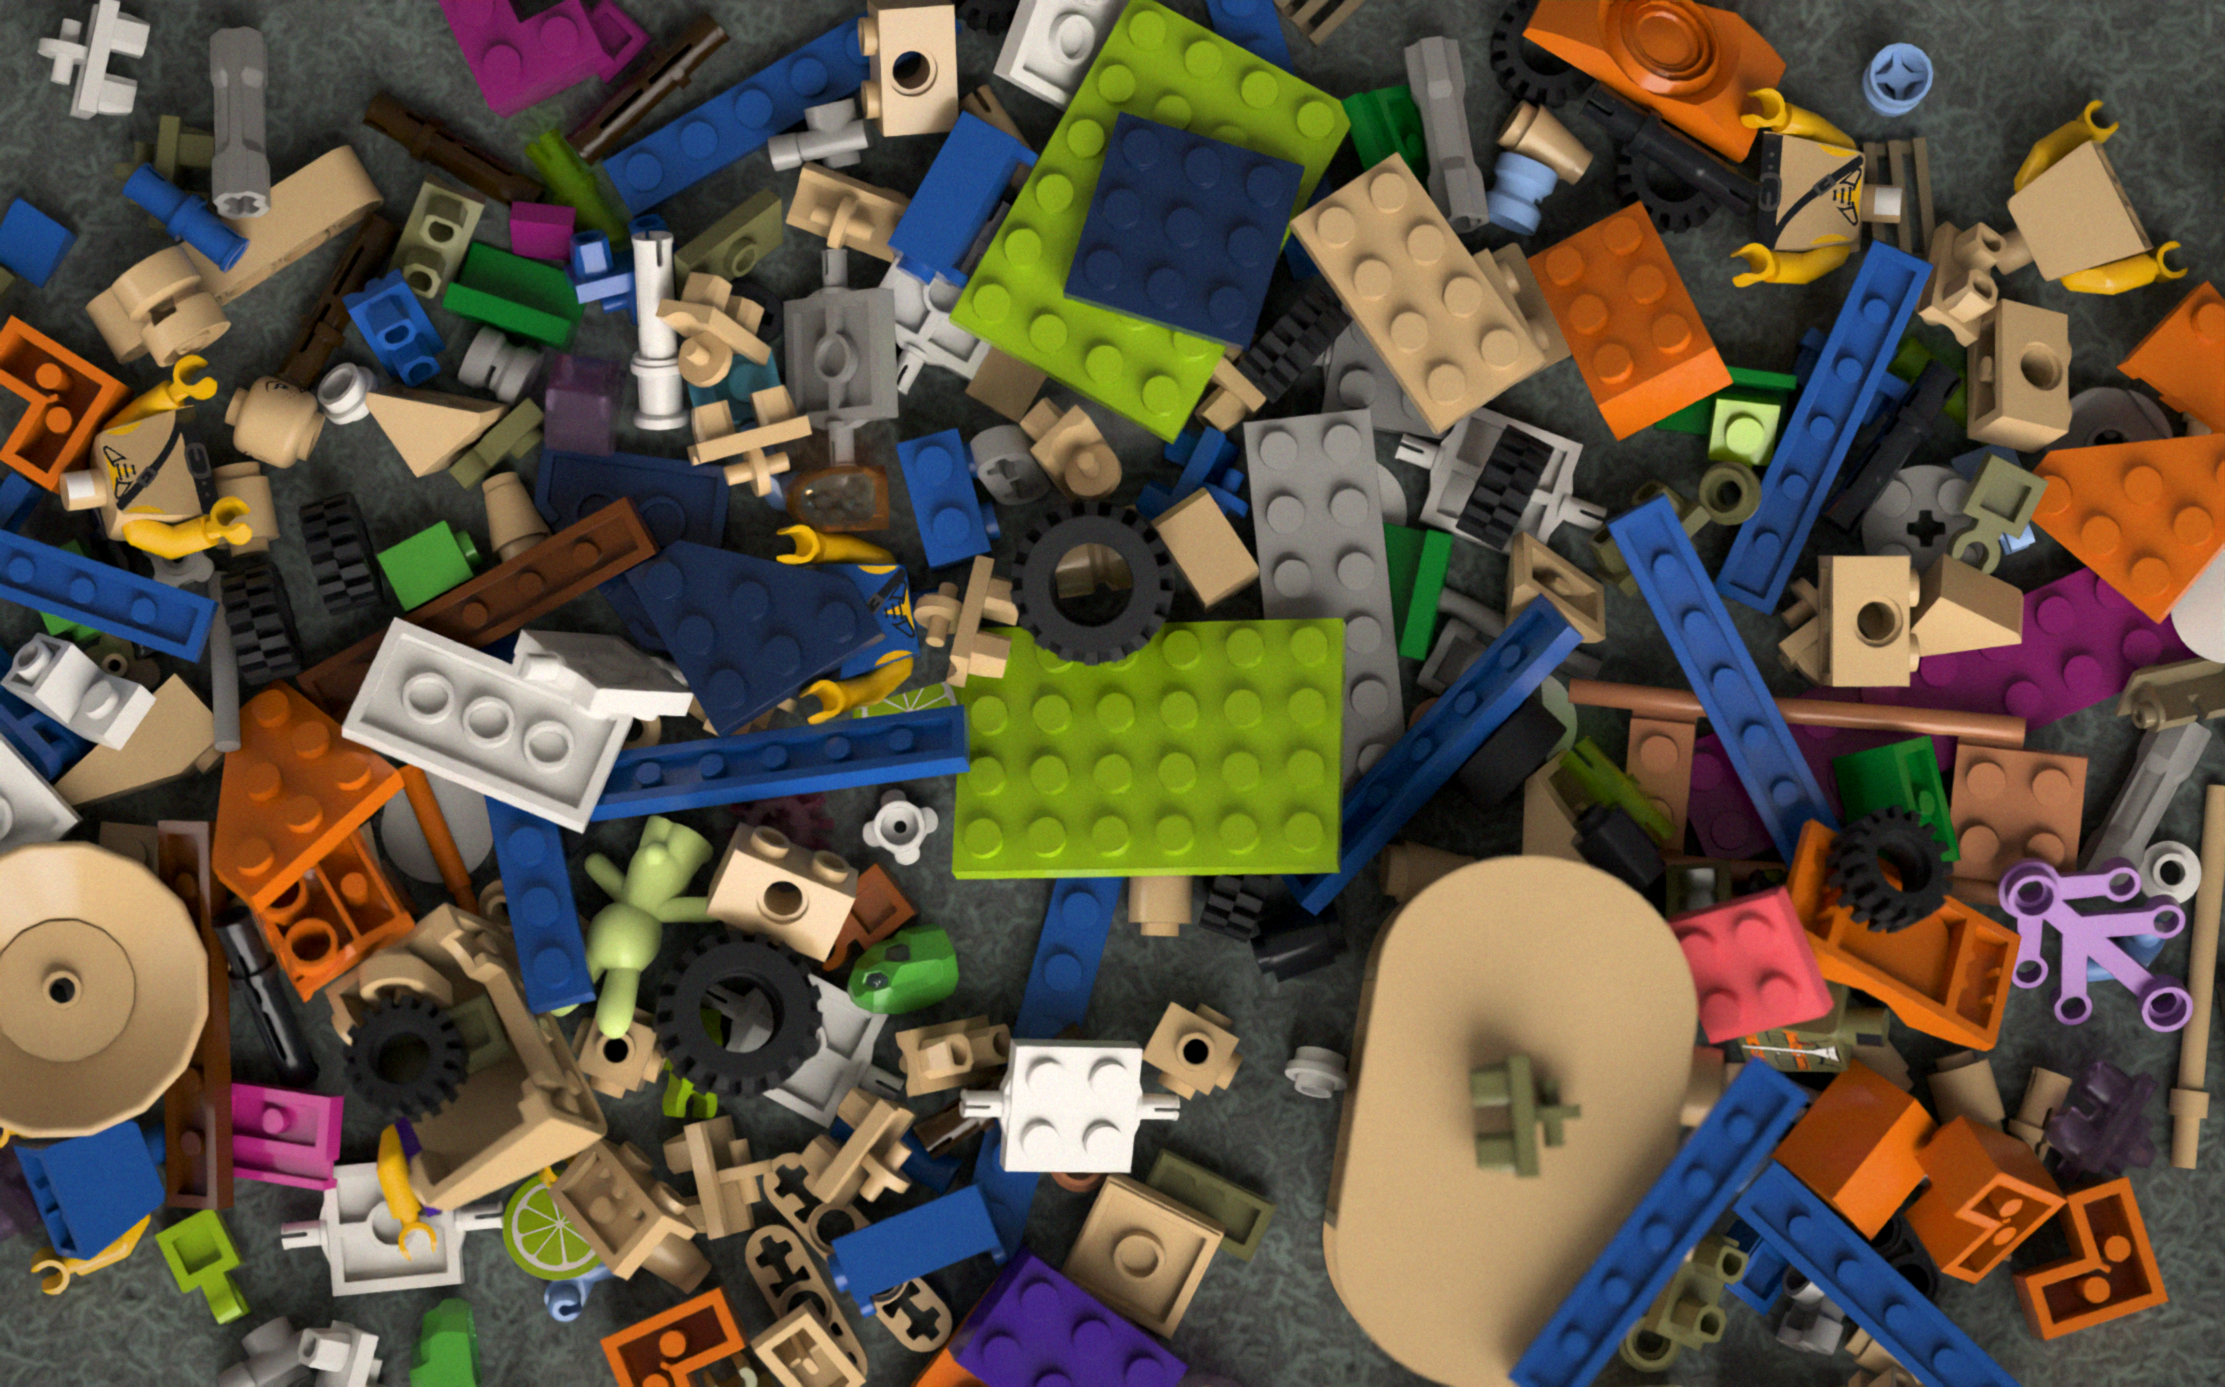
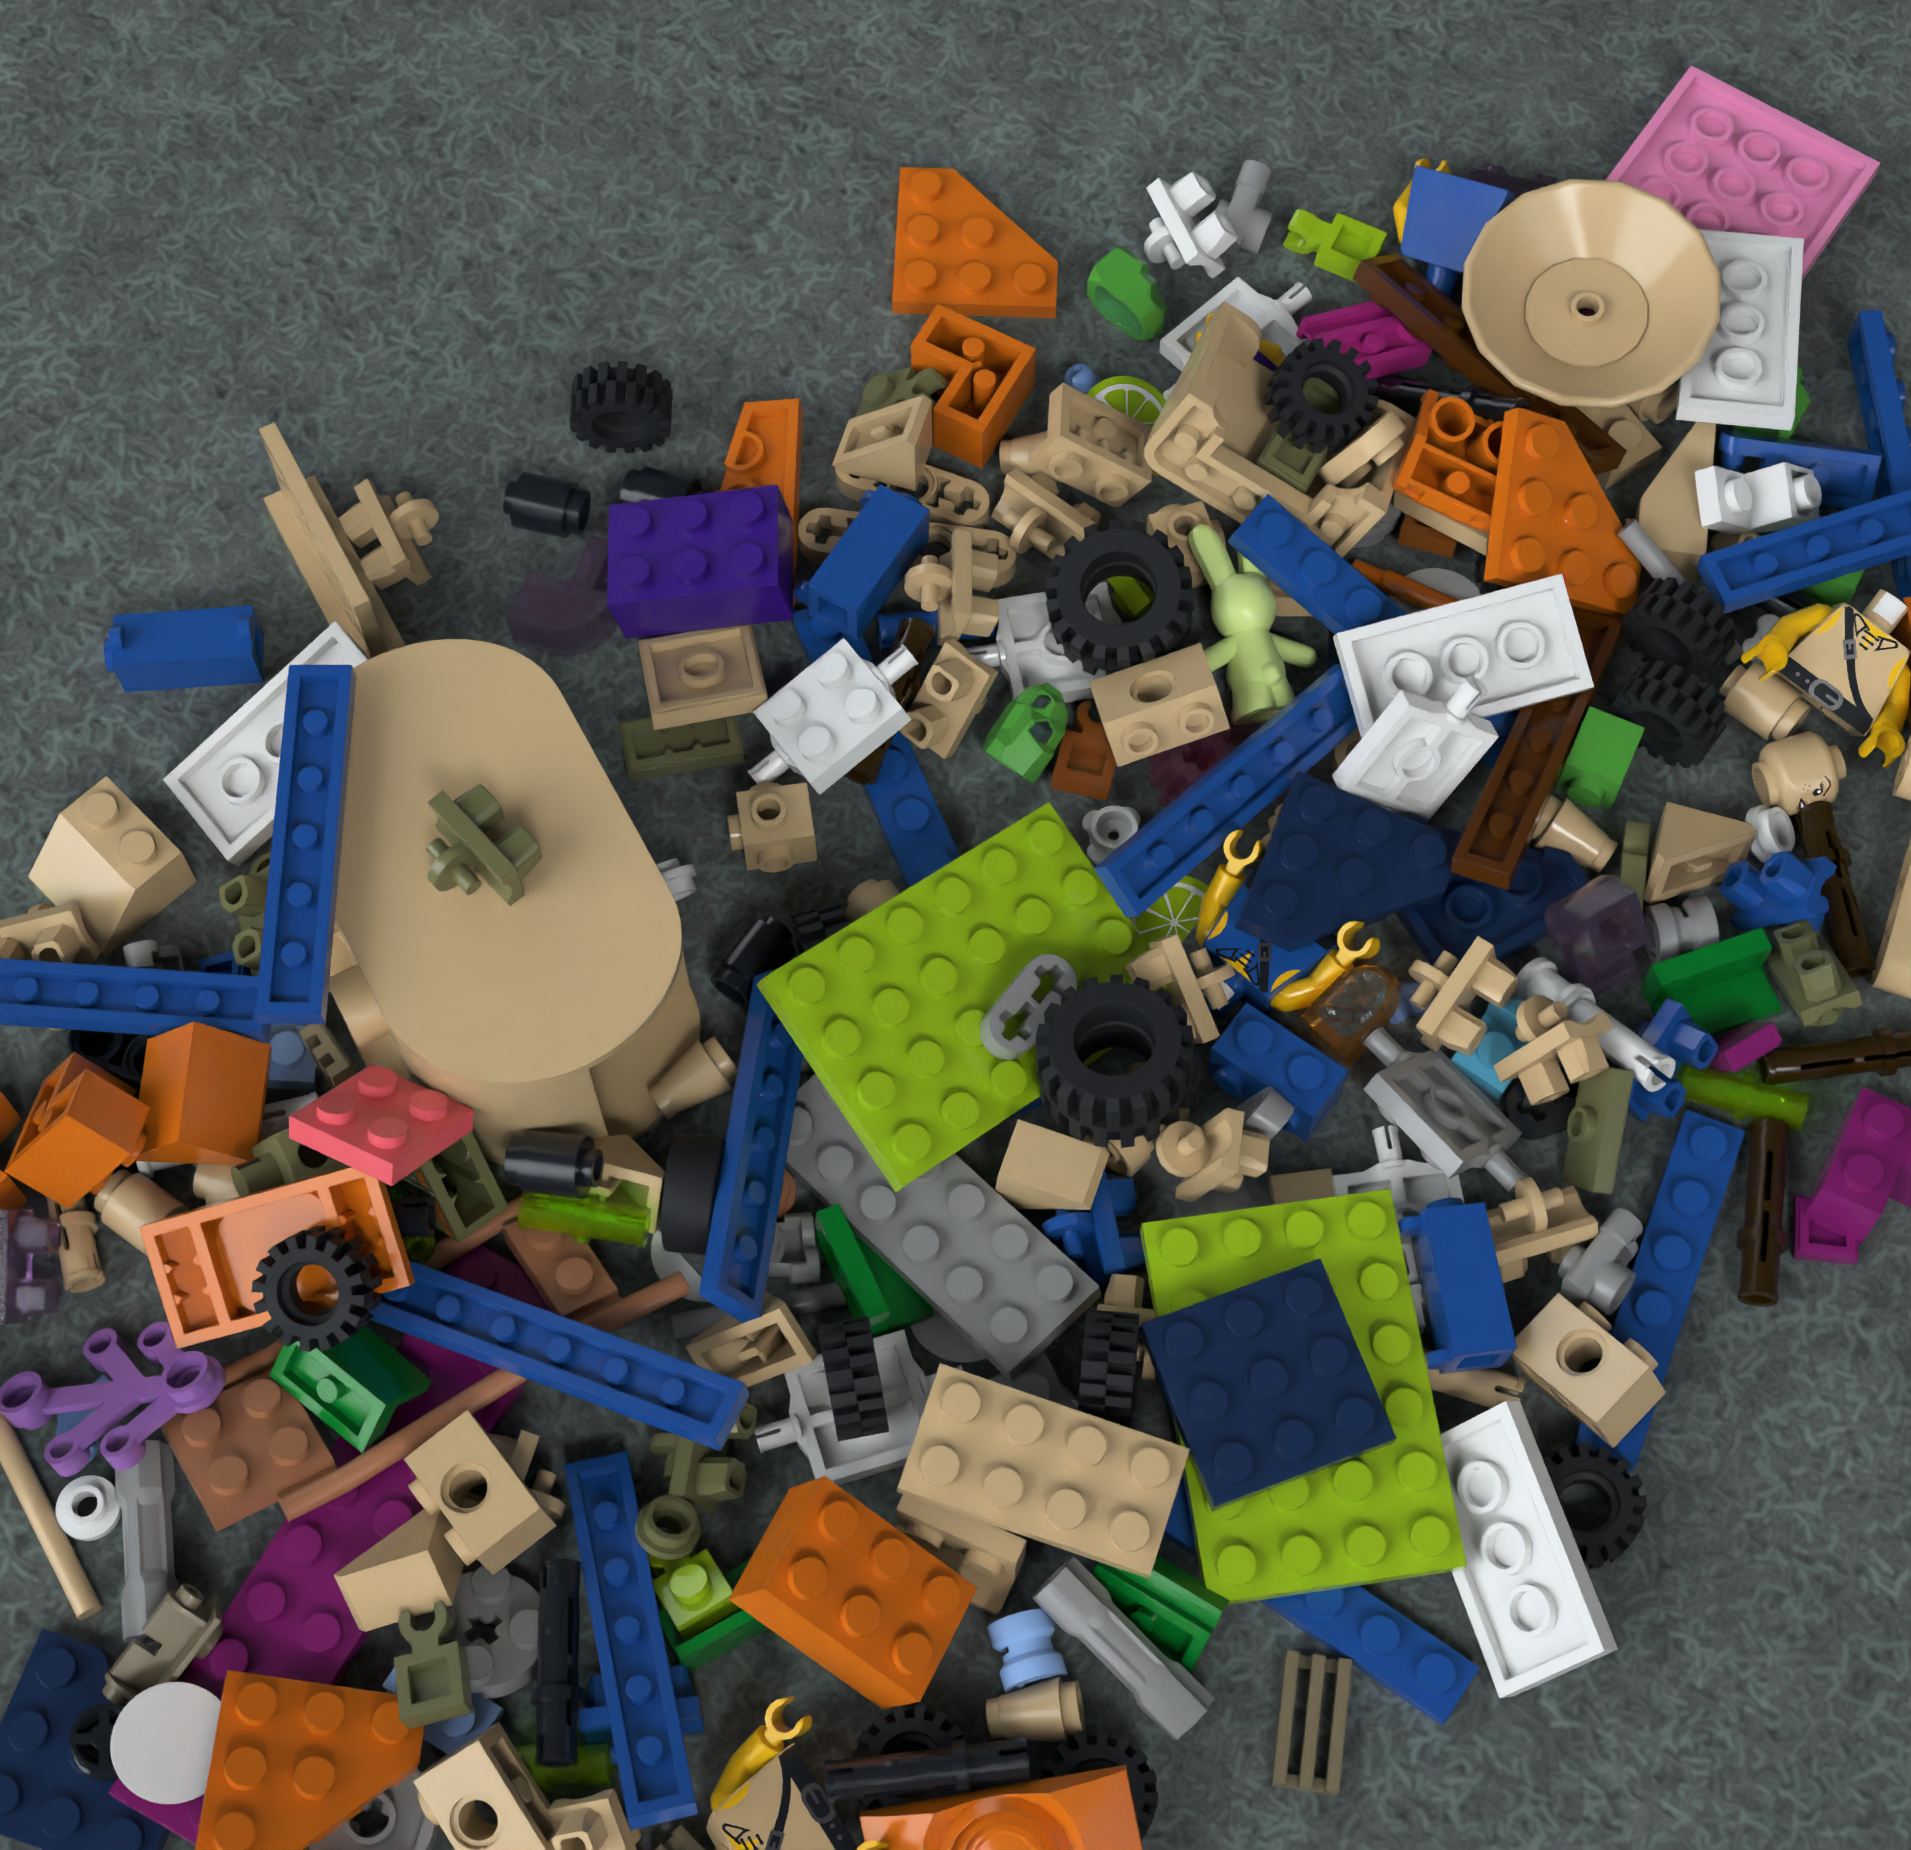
camera: 145 degrees right, 20 degrees down
(1126, 705) = (1018, 998): none -> light grey beam

